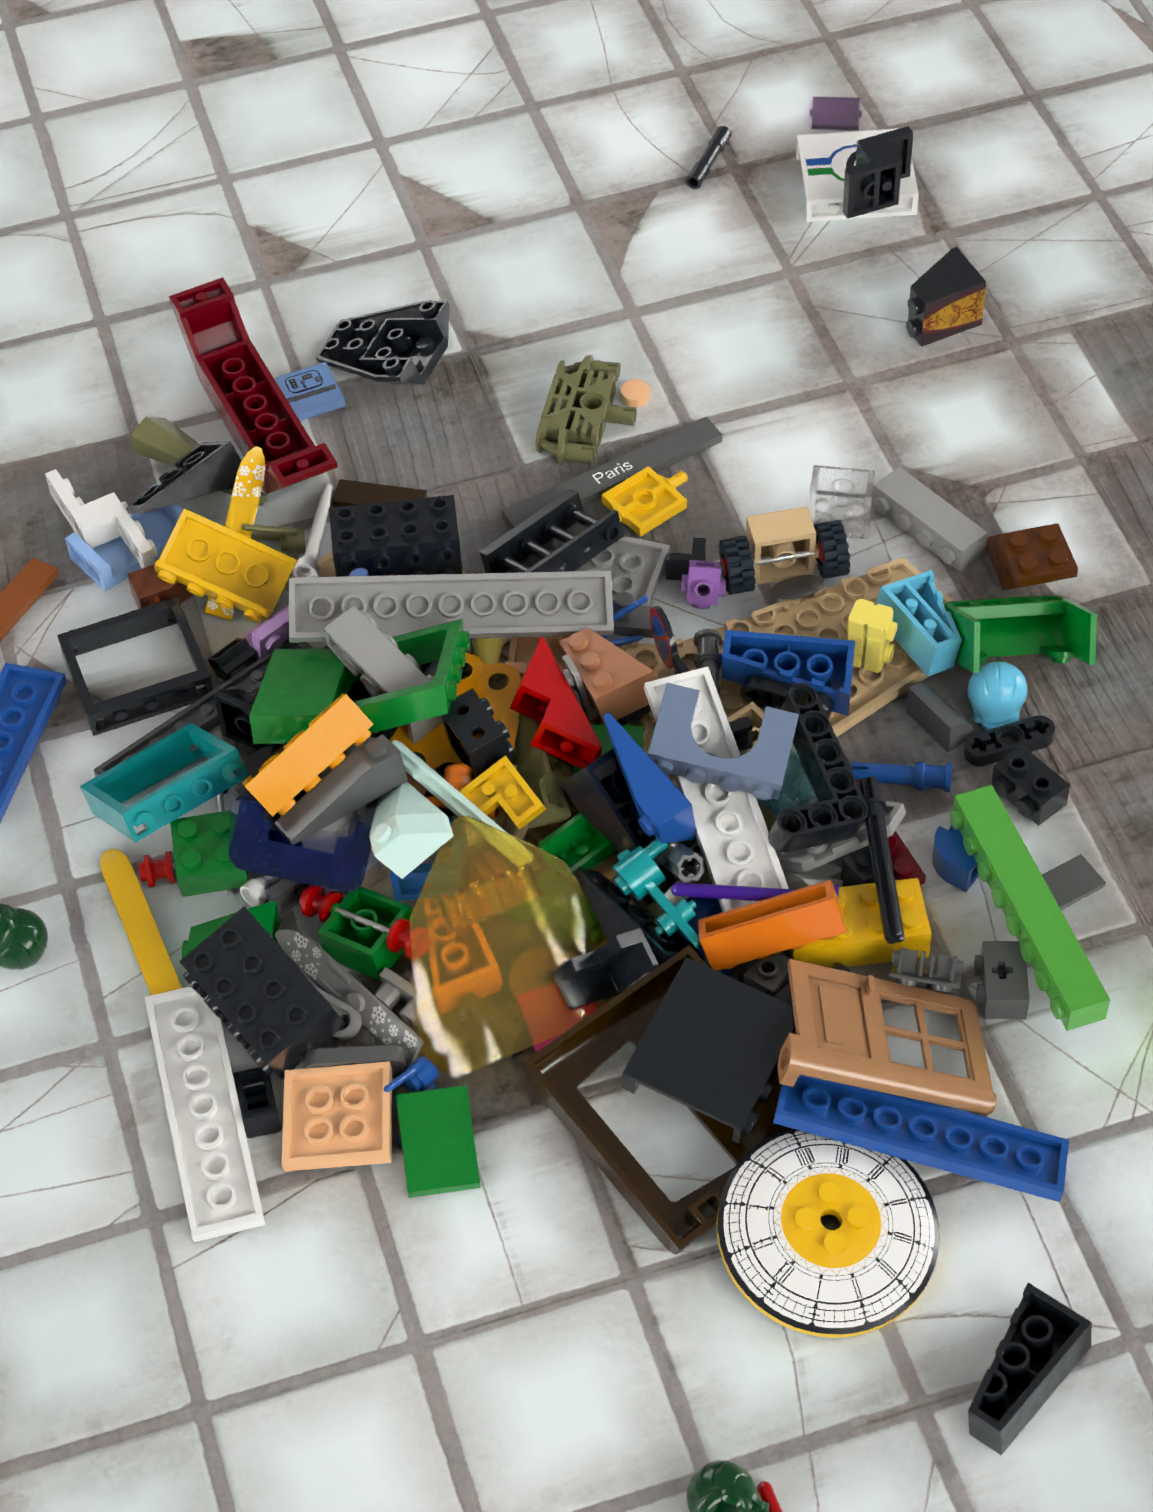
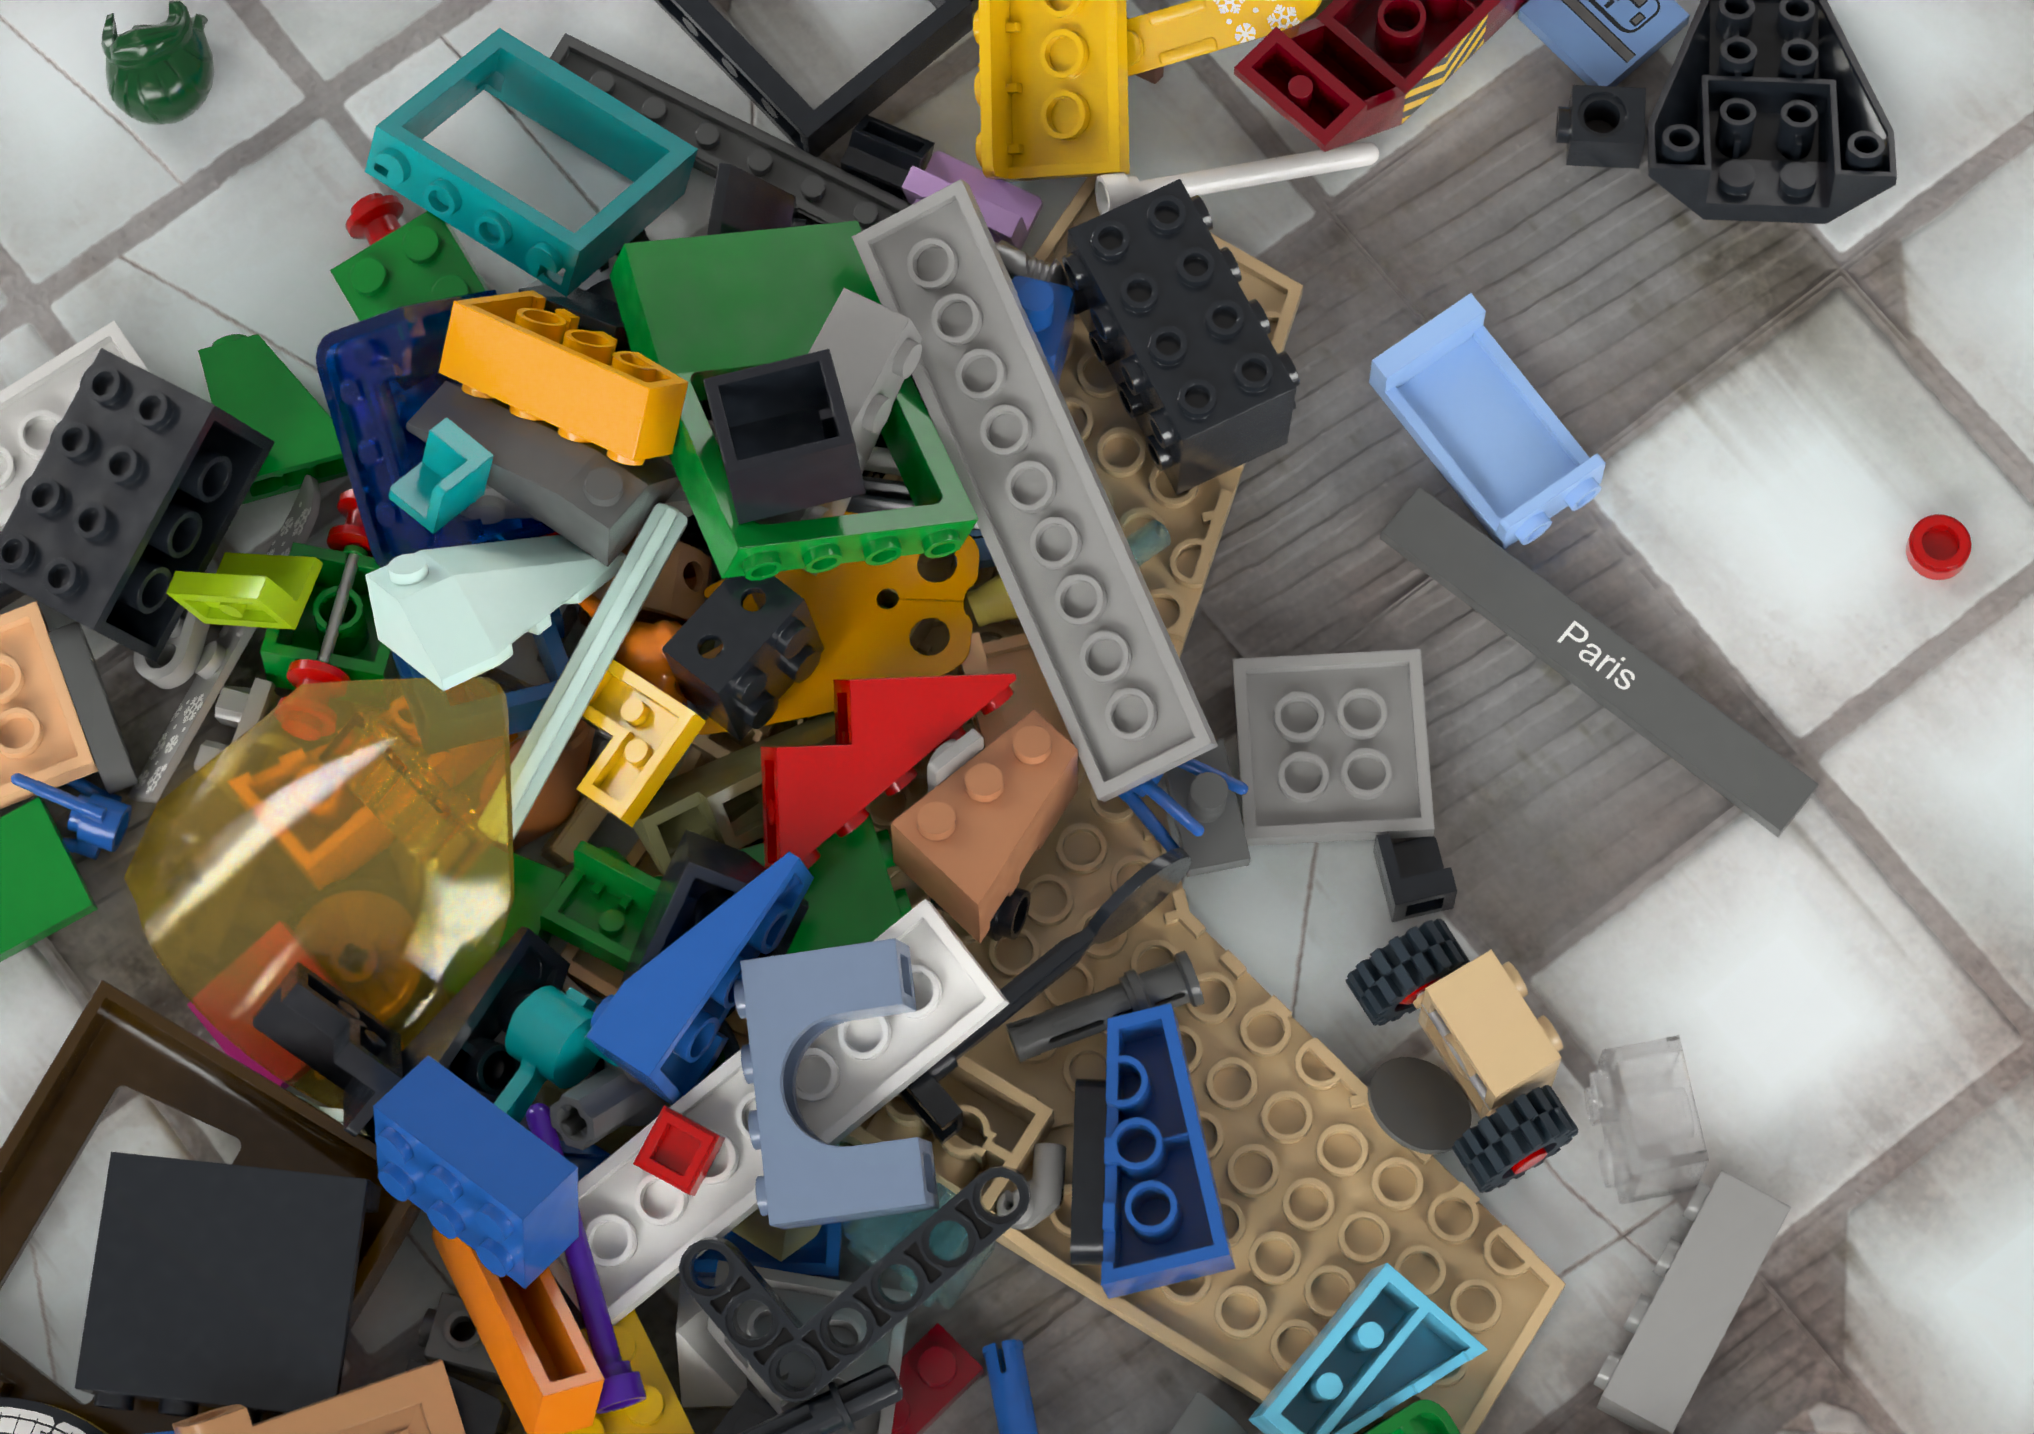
camera: 70 degrees right, 20 degrees up
(138, 923) = (255, 260): yellow piece -> none
(291, 539) = (1201, 142): olive plant -> none
(331, 822) = (446, 480): none -> teal panel
(336, 953) = (249, 590): none -> lime panel
(359, 493) = (1375, 254): dark brown tile -> none
(363, 401) = (1617, 106): none -> black brick
(398, 658) = (784, 436): none -> black piece
(489, 480) = (1485, 425): none -> light blue panel
(546, 525) = (1371, 564): black fence -> none
(579, 410) = (1762, 510): olive piece -> none
(615, 352) = (1938, 547): none -> red tile
(635, 393) = (1839, 625): light nougat tile -> none
(646, 499) = (1542, 742): yellow plate -> none
(703, 573) = (1348, 922): medium lavender brick -> none
(705, 899) = (476, 1172): none -> blue piece
(722, 830) = (679, 1150): none -> red tile
(872, 631) = (1276, 1279): light yellow brick -> none

